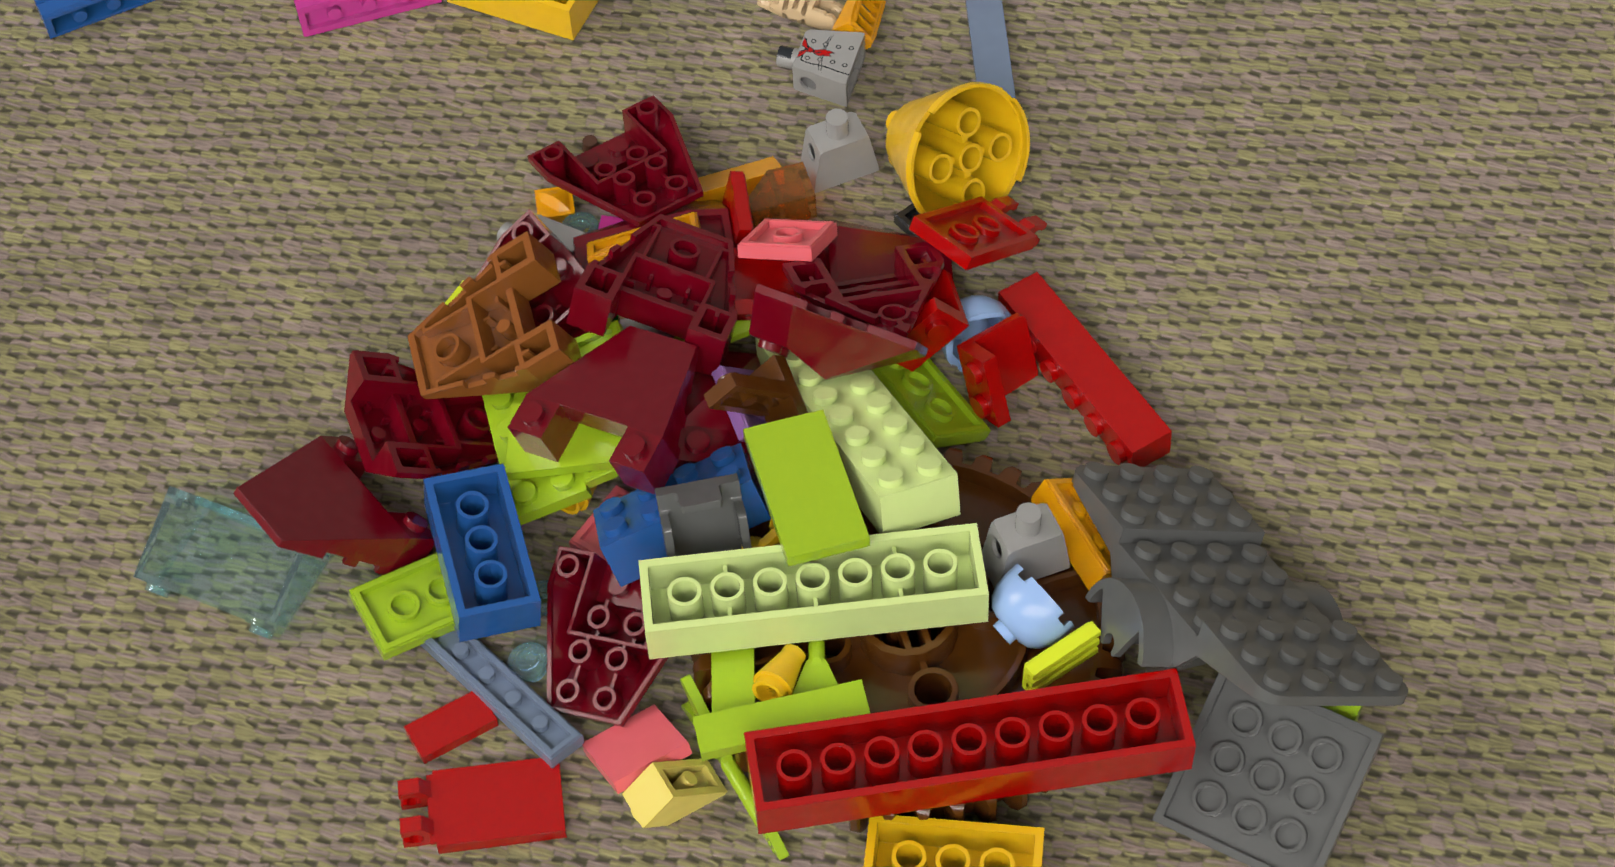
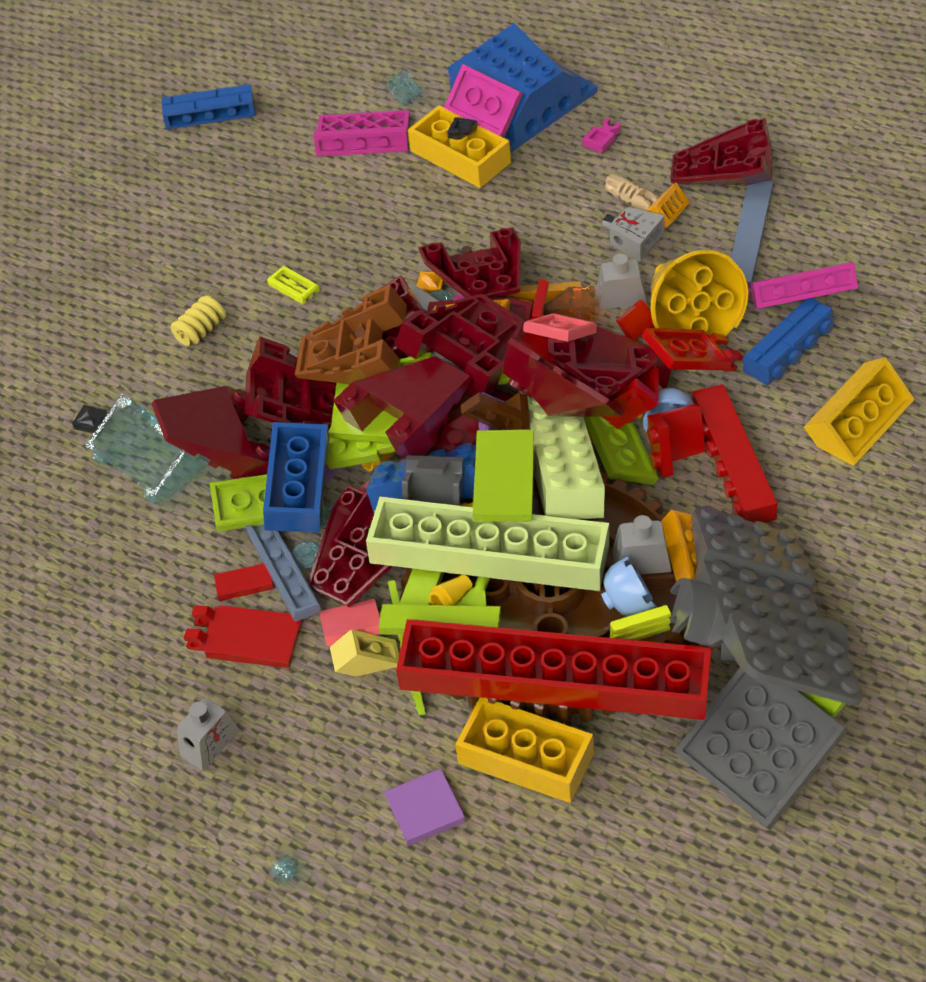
camera: 20 degrees right, 5 degrees down
(117, 531) = (89, 419): none -> black tile
(228, 339) = (198, 320): none -> light yellow piece
(346, 255) = (290, 287): none -> neon yellow tile
(878, 200) = (636, 320): none -> red tile
(1098, 100) = (803, 285): none -> dark pink fence
(1100, 186) = (788, 341): none -> blue brick
(1231, 269) = (860, 411): none -> yellow slope

